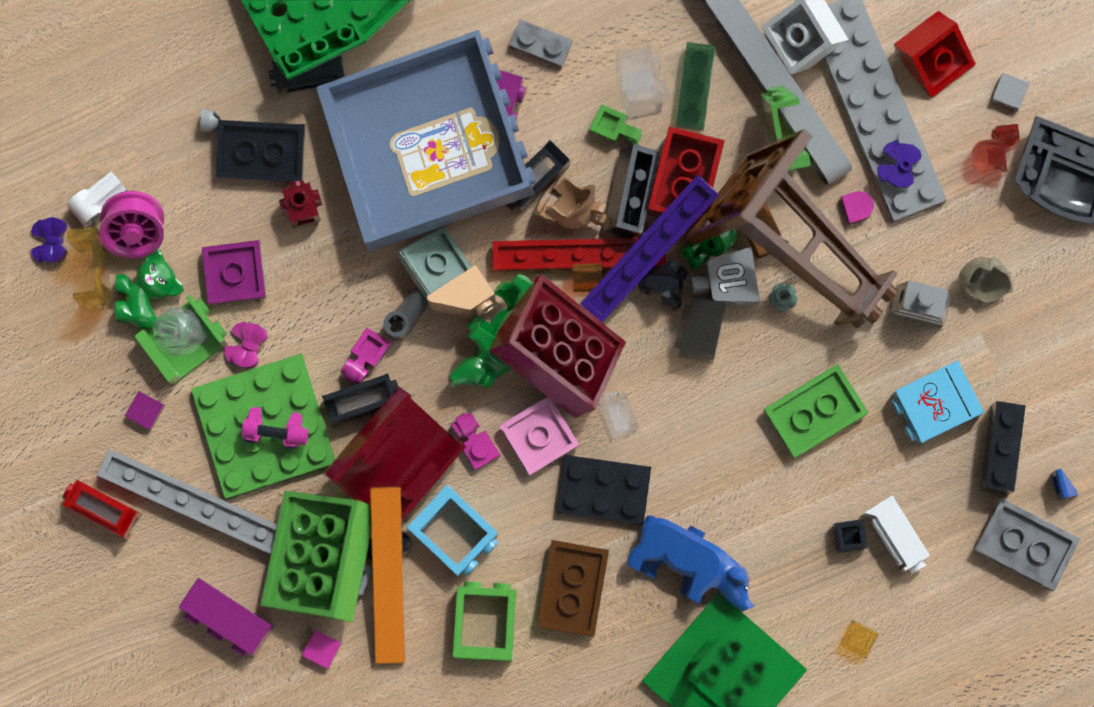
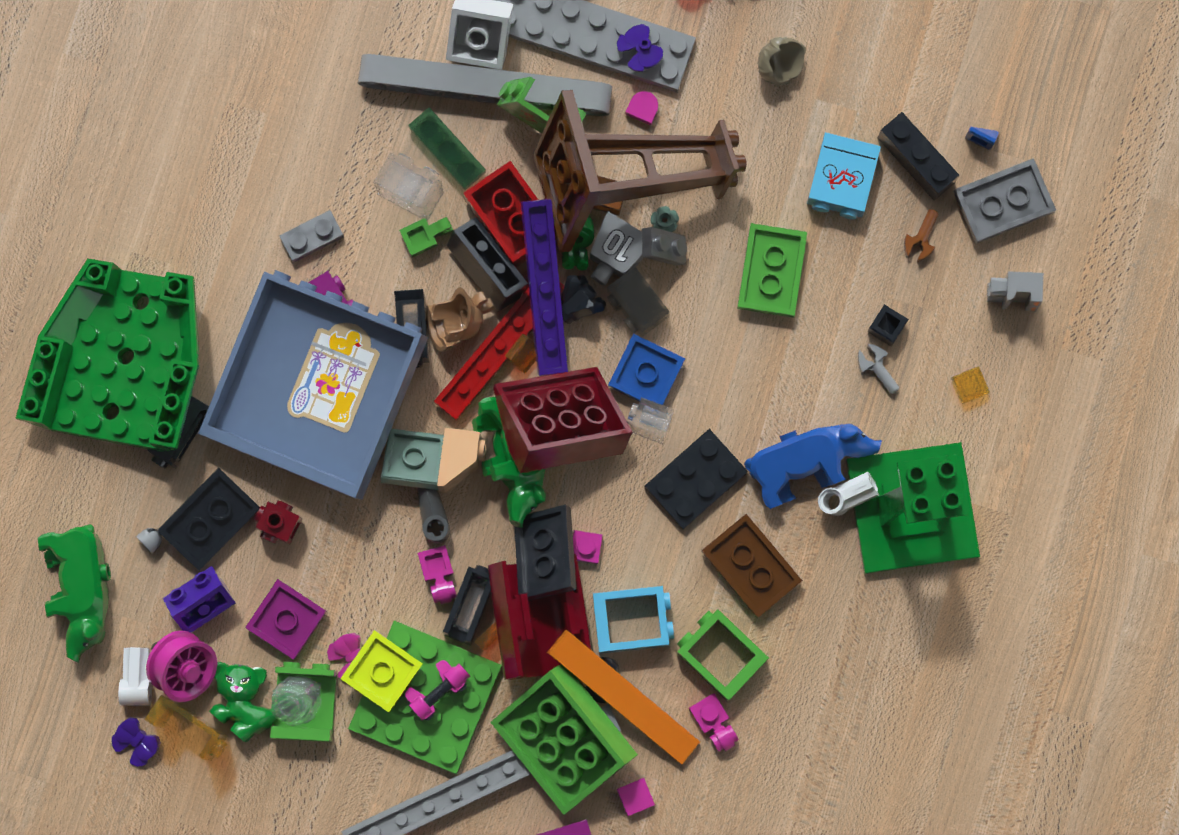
camera: 50 degrees left, 0 degrees up
(132, 100) = (82, 585): none -> green animal
(144, 410) = (333, 779): magenta tile -> none
(192, 195) = (199, 600): none -> dark purple brick
(253, 376) = (381, 671): none -> neon yellow plate
(344, 434) = (487, 638): none -> clear orange tile
(431, 653) = (709, 716): none -> dark pink plate
(446, 423) = (545, 553): none -> black plate
(539, 435) = (613, 492): bright pink plate -> none
(653, 382) = (646, 371): none -> blue plate
(691, 616) = (850, 494): none -> white piece
(761, 312) = (664, 246): none -> flat silver plate
(810, 557) = (878, 367): none -> light grey bar
(898, 535) = (917, 289): white window -> none
(921, 303) = (758, 122): light grey torso -> none
(943, 504) = (922, 236): none -> dark orange bar
(964, 610) = (1017, 287): none -> light grey hips

